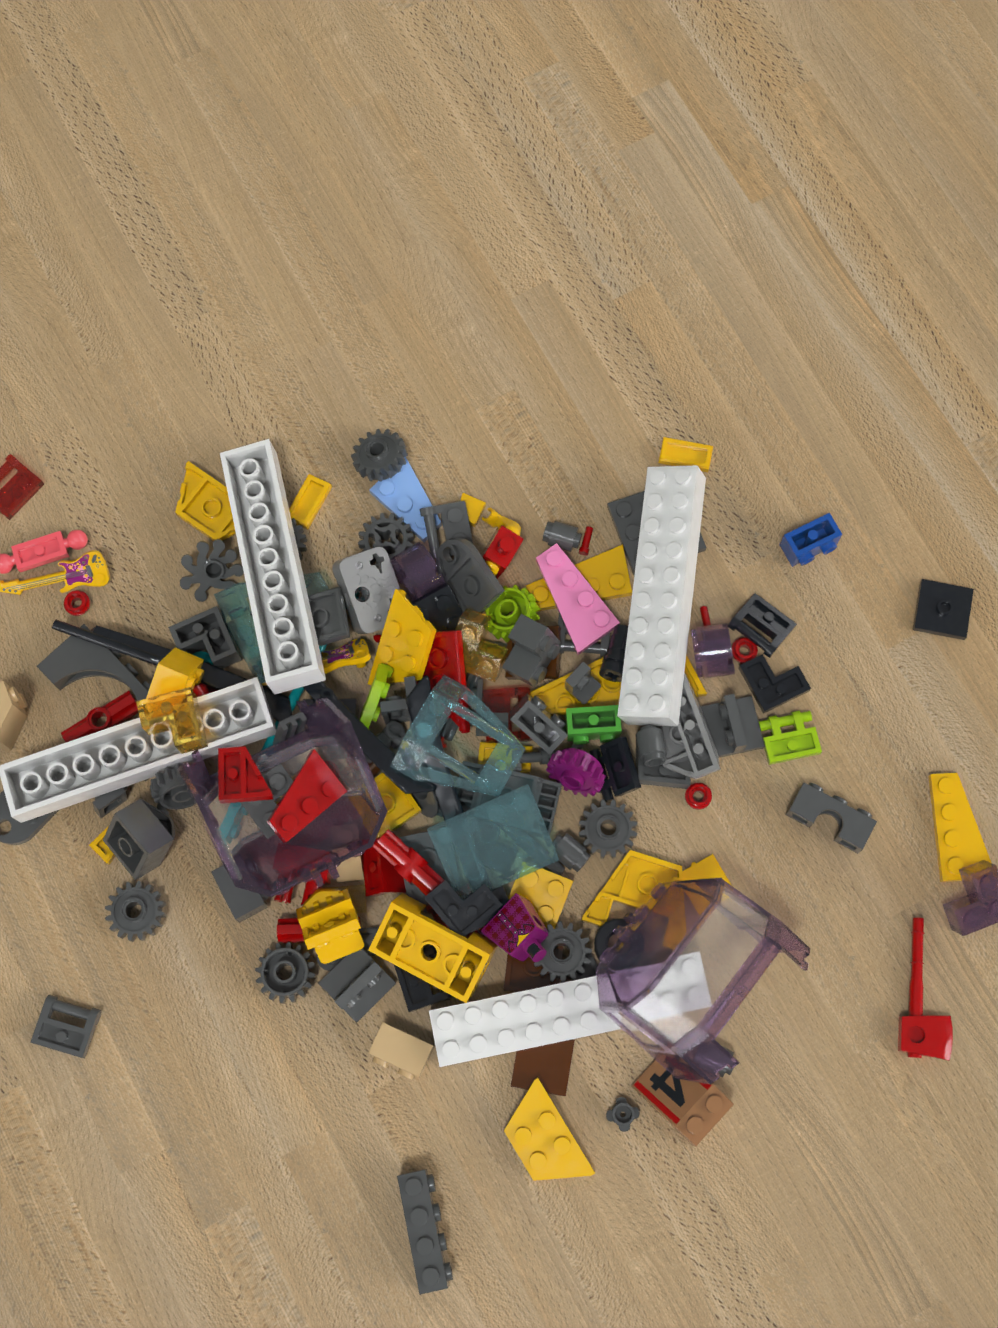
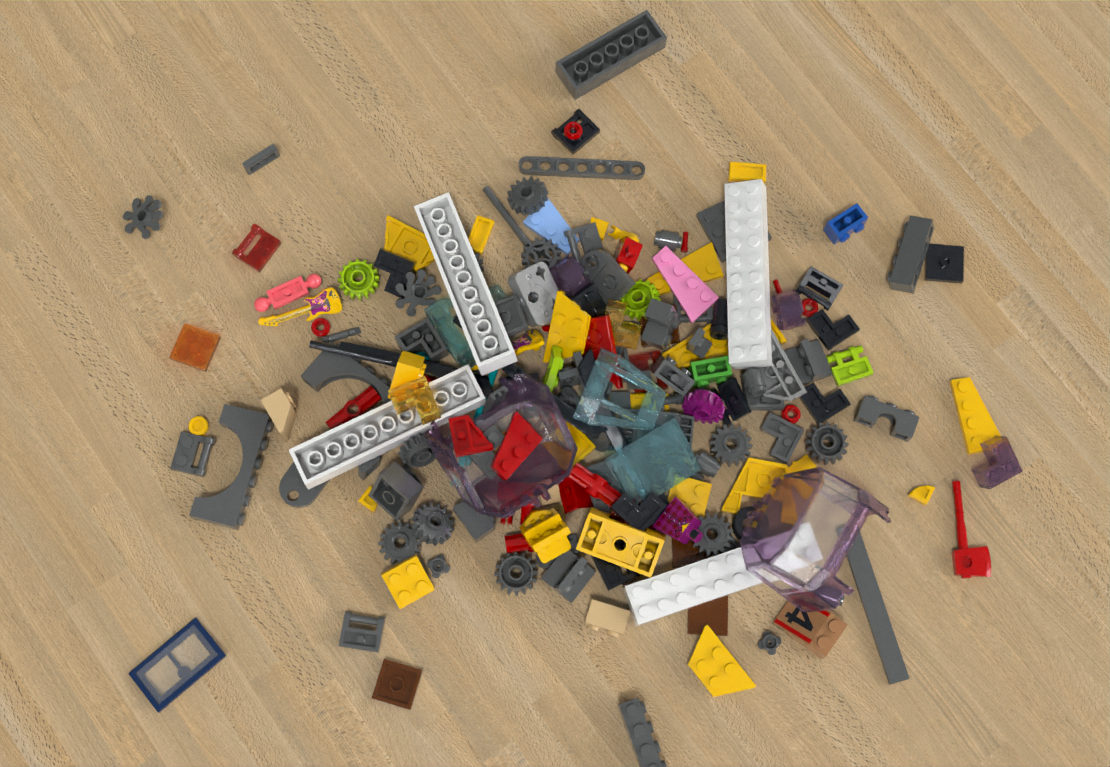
camera: 15 degrees left, 0 degrees up
(33, 369) = (261, 159): none -> dark grey tile
(102, 616) = (340, 335): none -> dark grey wheel
(102, 1105) = (397, 684): none -> reddish brown tile
(136, 965) = (407, 581): none -> yellow plate
(139, 556) = (361, 288): none -> lime gear
(174, 901) = (432, 524): none -> dark grey gear
(175, 947) = (436, 572): none -> dark grey plate
(187, 532) = (396, 266): none -> black plate
(348, 478) = (505, 214): none -> dark grey bar
(453, 366) = (573, 126): none -> red plate
(464, 379) = (589, 131): none -> black plate
(465, 749) = (621, 399): none -> dark grey tile
(470, 432) = (572, 171): none -> dark grey beam
(520, 275) = (610, 54): none -> dark grey brick
(688, 823) = (786, 435): none -> dark grey plate
(743, 792) = (823, 408): none -> black plate
(752, 833) = (822, 452): none -> dark grey gear
(779, 1087) = (876, 612): none -> dark grey tile
(868, 930) = (922, 494): none -> yellow tile
(897, 592) = (911, 254): none -> dark grey brick

